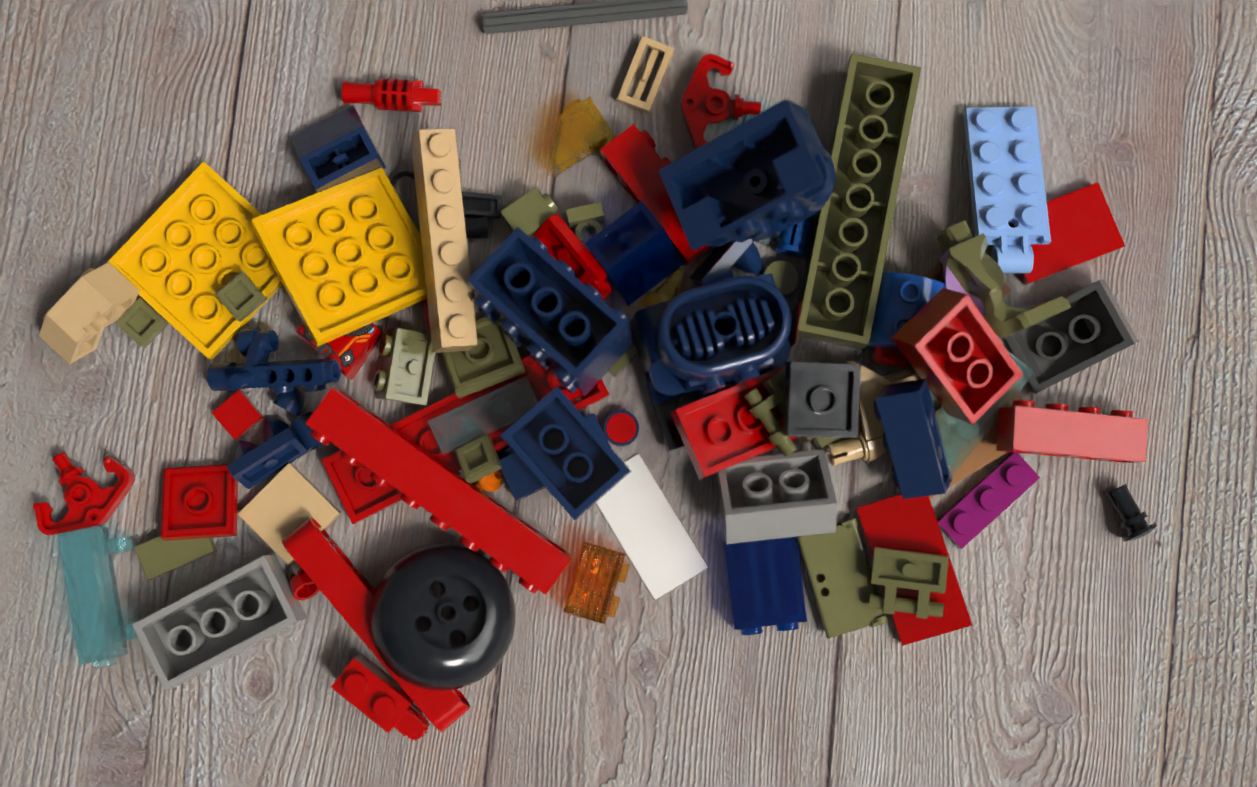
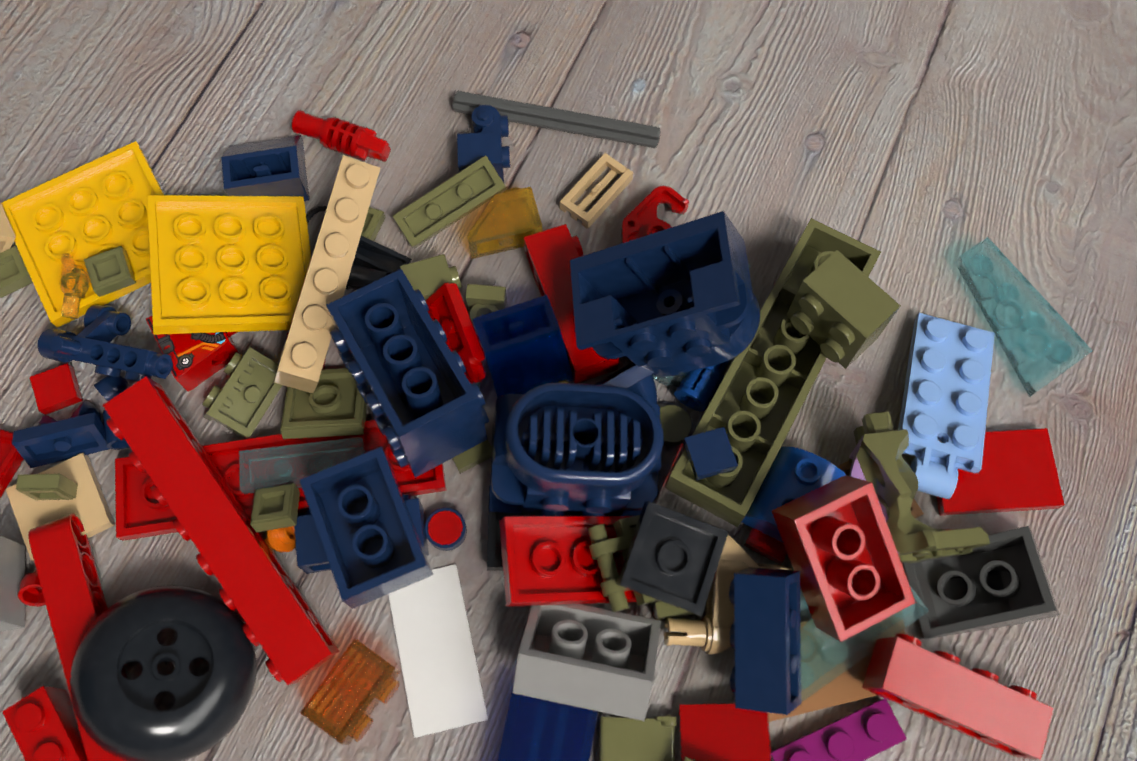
camera: 20 degrees right, 15 degrees down
(216, 319) = (74, 284): none -> clear yellow animal
(278, 502) = (46, 486): none -> olive tile
(520, 133) = (449, 202): none -> olive plate
(531, 74) = (486, 140): none -> dark blue brick
(825, 301) = (710, 453): none -> dark blue tile
(904, 143) = (841, 309): none -> olive brick
(1058, 87) = (1023, 321): none -> clear light blue wing

